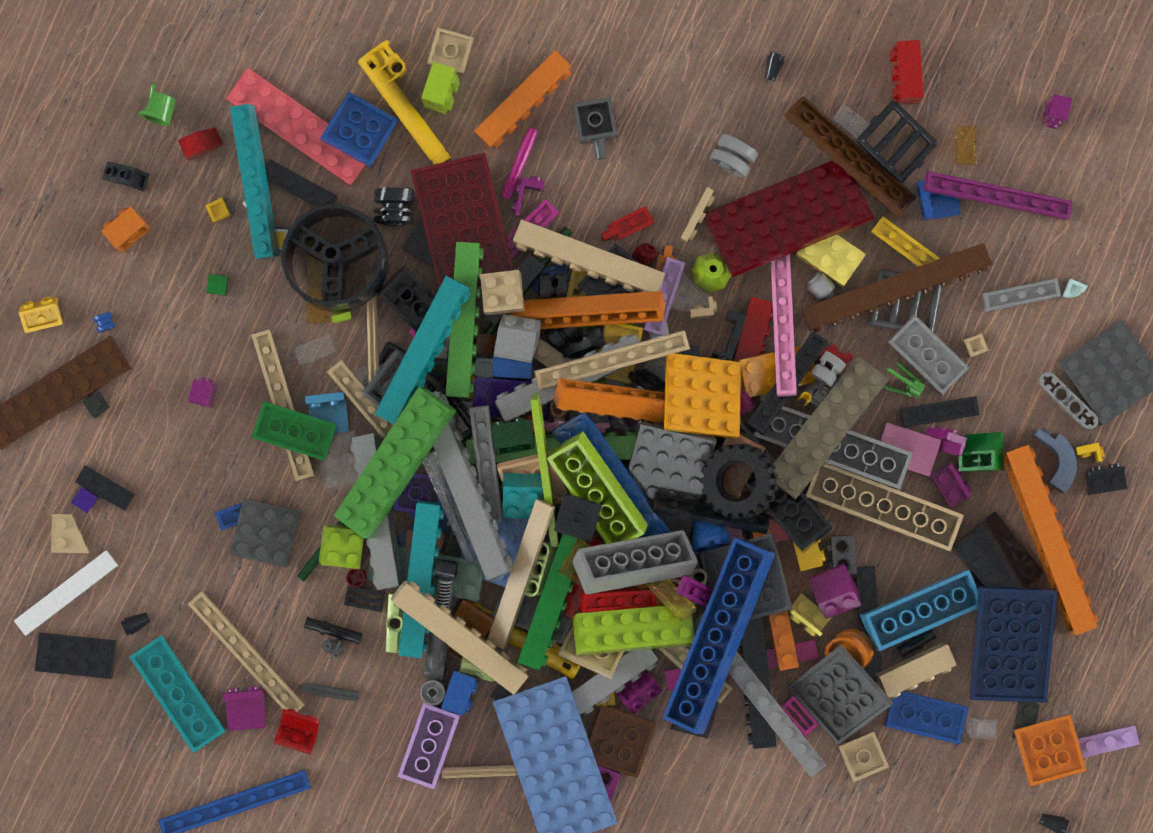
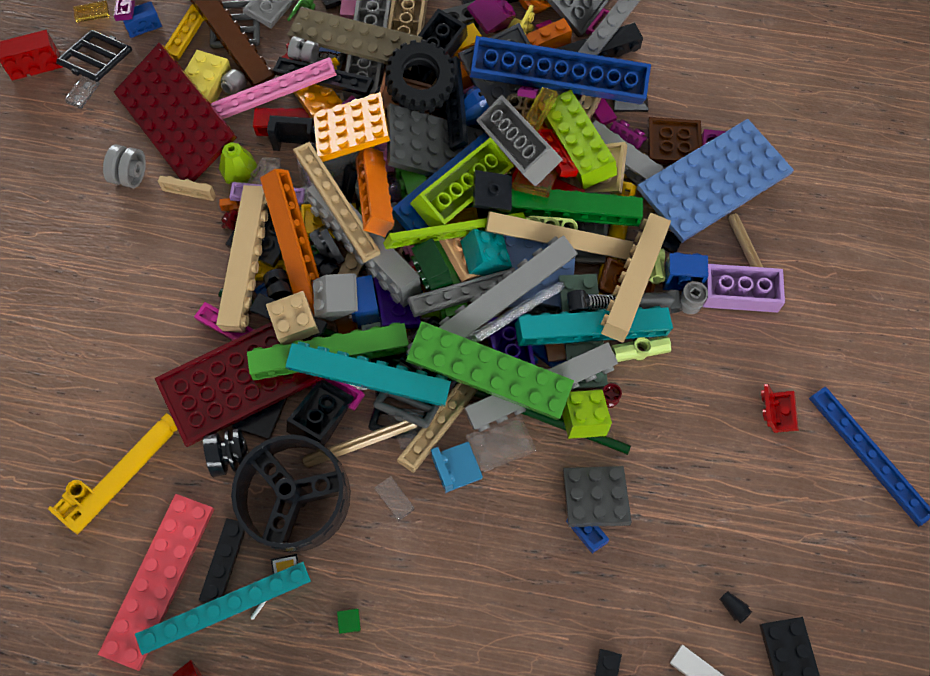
camera: 105 degrees left, 20 degrees down
(177, 693) = (789, 541): teal plate -> none
(202, 392) = (470, 599): magenta brick -> none
(218, 210) = (266, 644): yellow tile -> none
(245, 652) = (721, 485): tan tile -> none
(245, 708) = (776, 468): magenta bracket -> none
(279, 394) = (458, 514): tan plate -> none
(294, 431) = (484, 491): green plate -> none
(311, 623) = (669, 426): black pin -> none
(314, 289) = (318, 516): clear yellow tile -> none
(331, 692) = (727, 392): dark grey axle -> none
(333, 647) = (685, 393): dark grey hinge -> none
(341, 316) = (354, 479): lime tile -> none
(349, 595) = (626, 370): black tile -> none
(359, 129) = (150, 511): blue plate -> none
(440, 88) = (90, 434): lime brick -> none
(450, 49) = (54, 445): tan tile -> none
(519, 163) = (162, 351): dark pink axle -> none
(523, 99) = (97, 361): orange brick -> none
(533, 183) = (180, 332): magenta bracket -> none
(595, 124) = (110, 289): dark grey brick -> none
(628, 225) = (207, 242): red hinge -> none
(701, 312) = (270, 153): tan bracket -> none
(773, 65) = (35, 160): black cone -> none
(850, 156) = (110, 86): reddish brown plate -> none

